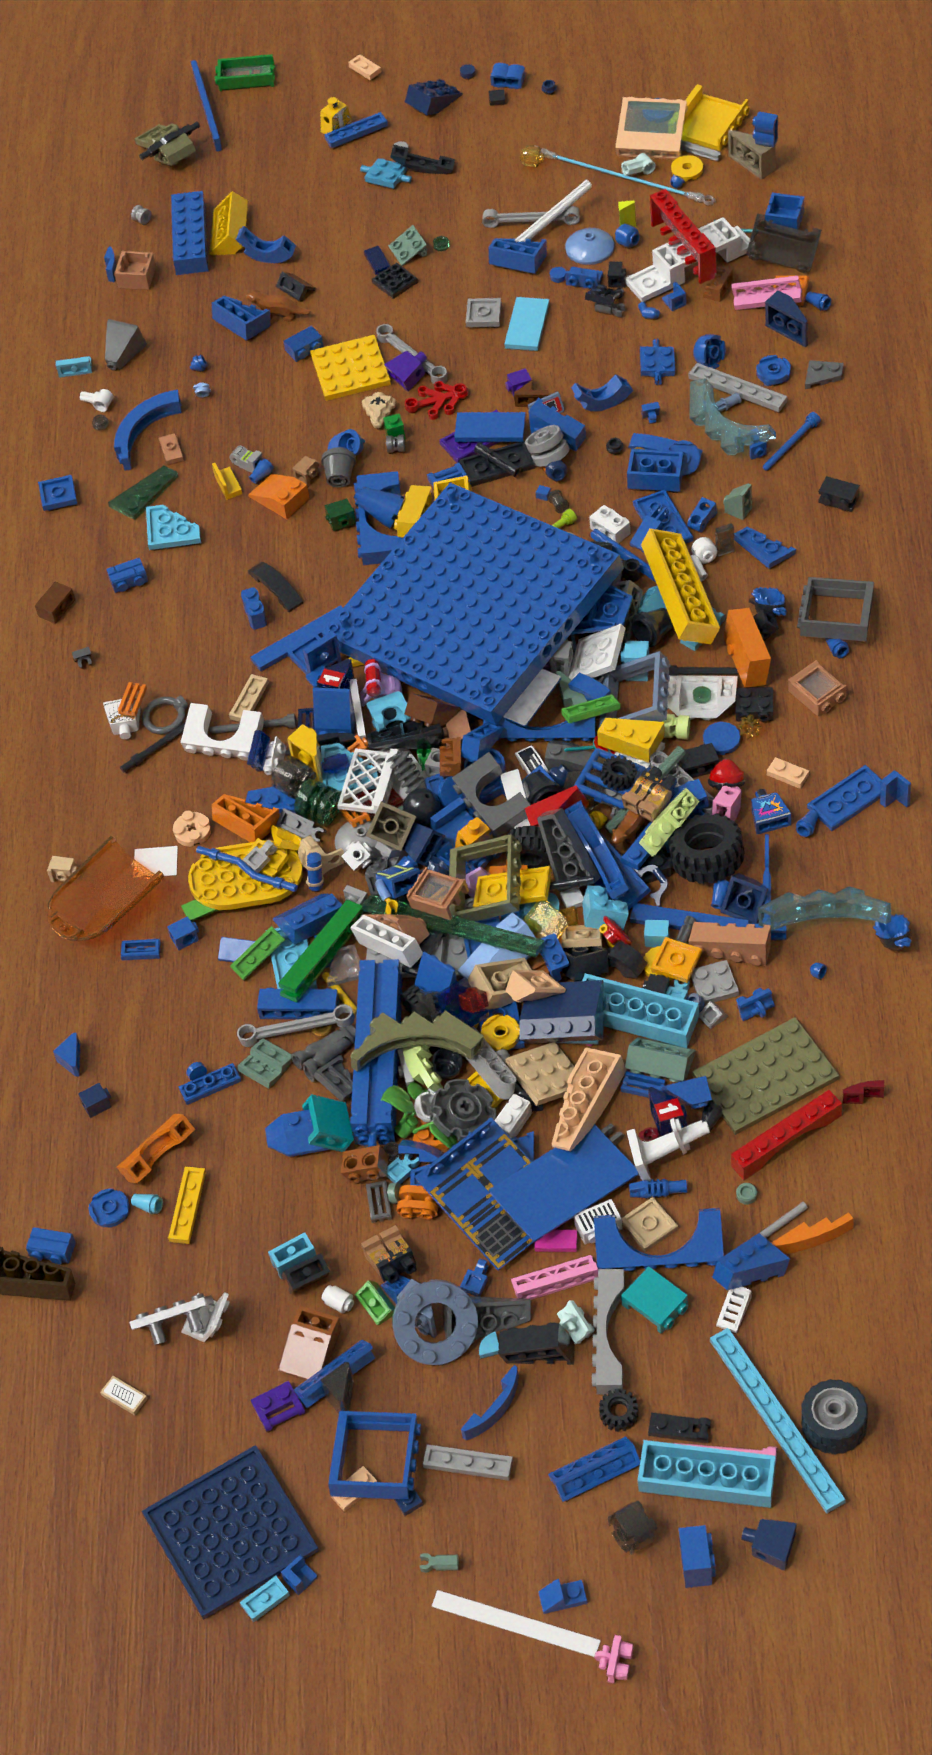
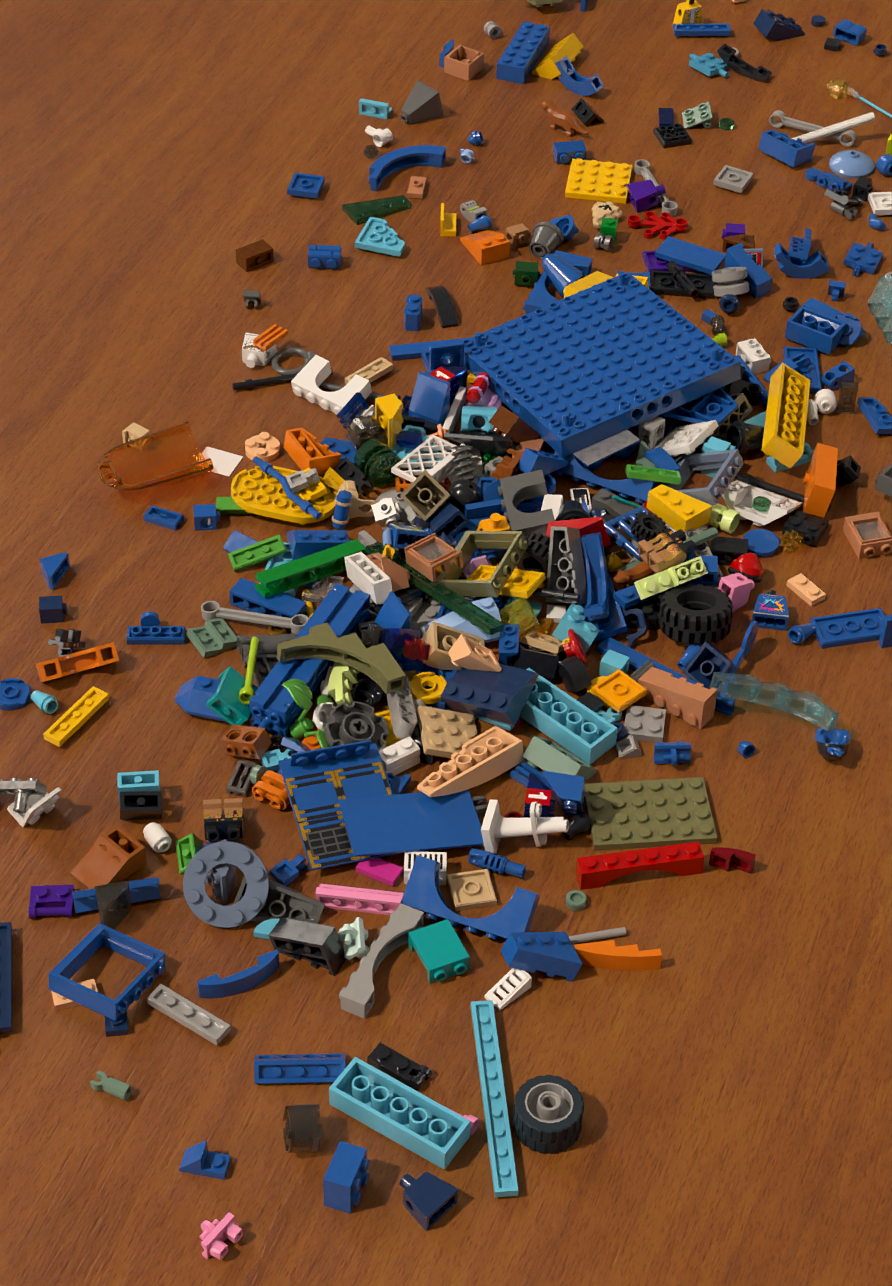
camera: 15 degrees right, 10 degrees down
(133, 1130) = (67, 641): none -> black hips
(240, 318) = (527, 118): blue wedge -> none
(341, 1116) = (247, 691): none -> lime piece
(516, 1623) = (149, 1168): white sticker -> none
(527, 323) = (766, 198): medium azure tile -> none
(595, 371) = (800, 246): none -> blue fence
(618, 1421) = (351, 1017): black tyre -> none
(739, 501) = (877, 376): sand green slope -> none
(769, 600) = (862, 454): blue hair -> none

